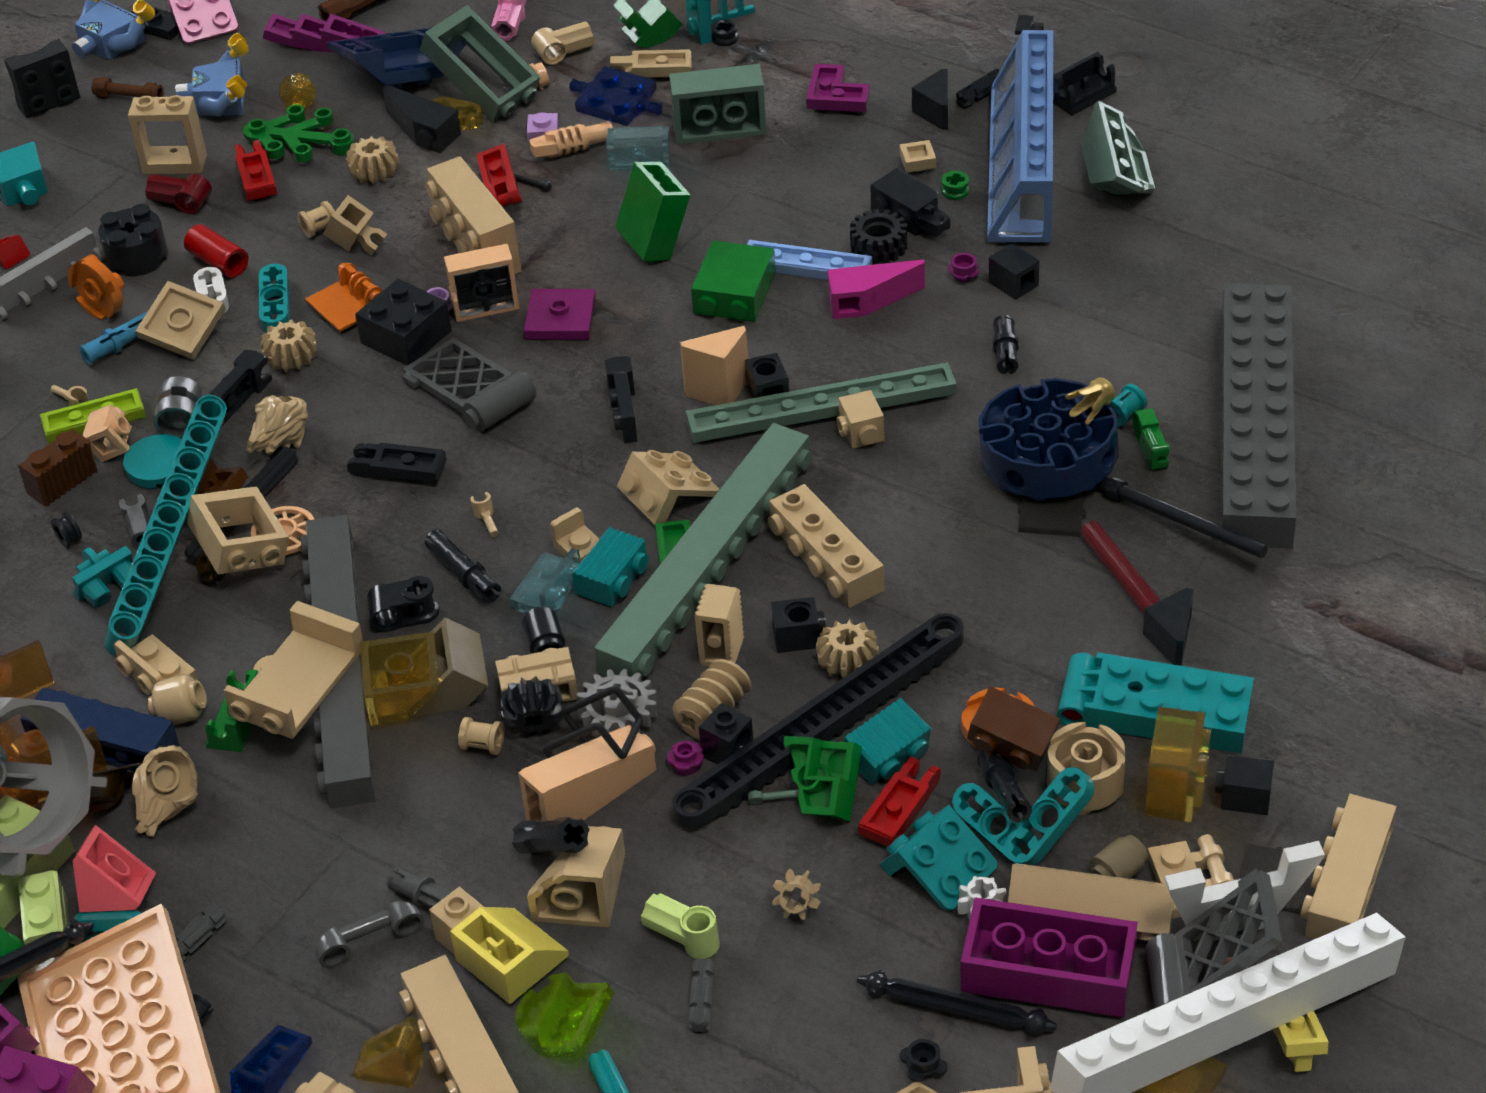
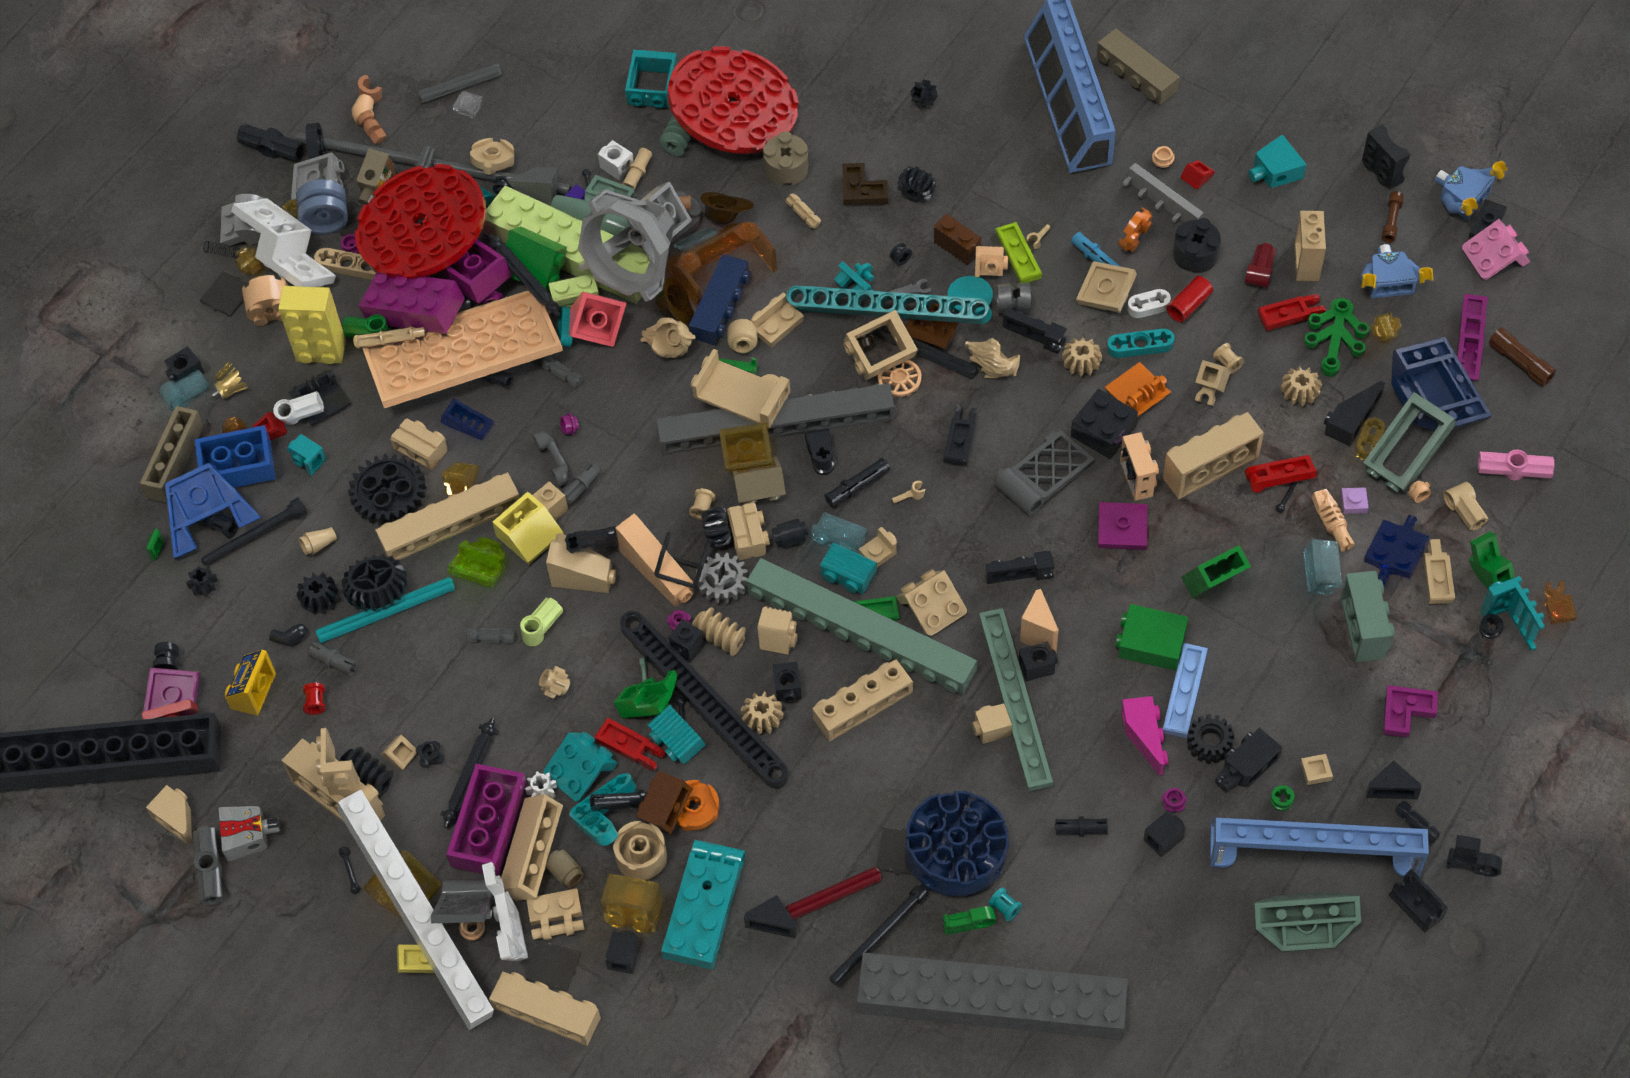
camera: 90 degrees right, 15 degrees up
(307, 922) = (569, 424): none -> magenta plate
(1099, 393) = (974, 865): pearl gold piece -> none

